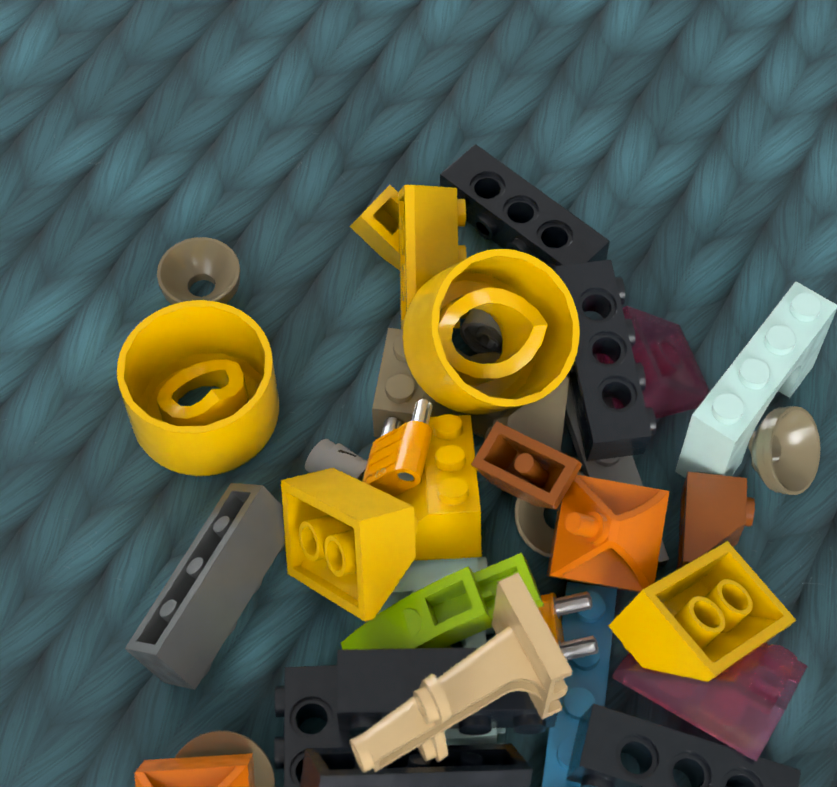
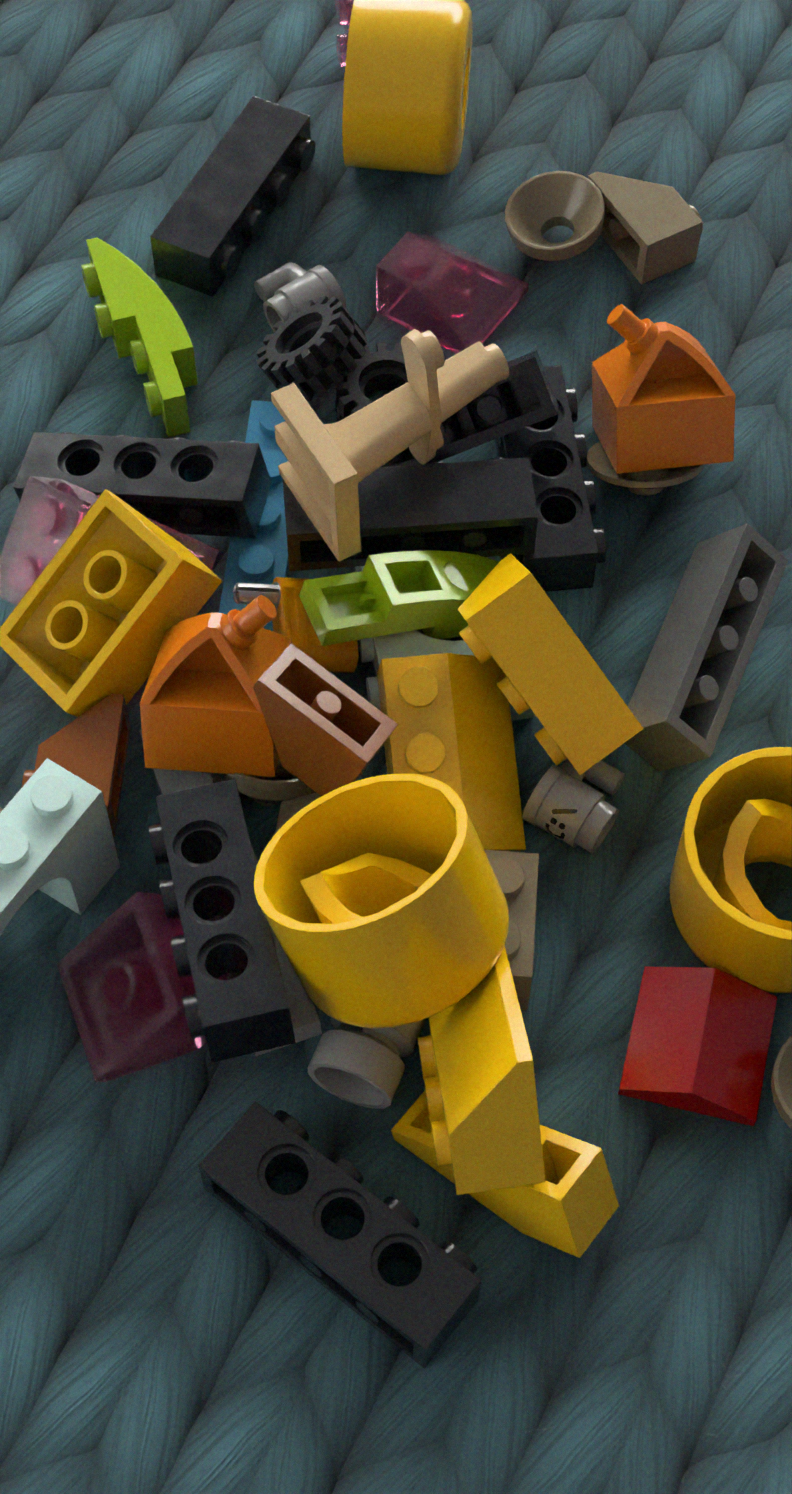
camera: 175 degrees right, 0 degrees up
(291, 317) = (699, 1042): none -> red slope
(400, 452) = (496, 774): light orange piece -> none

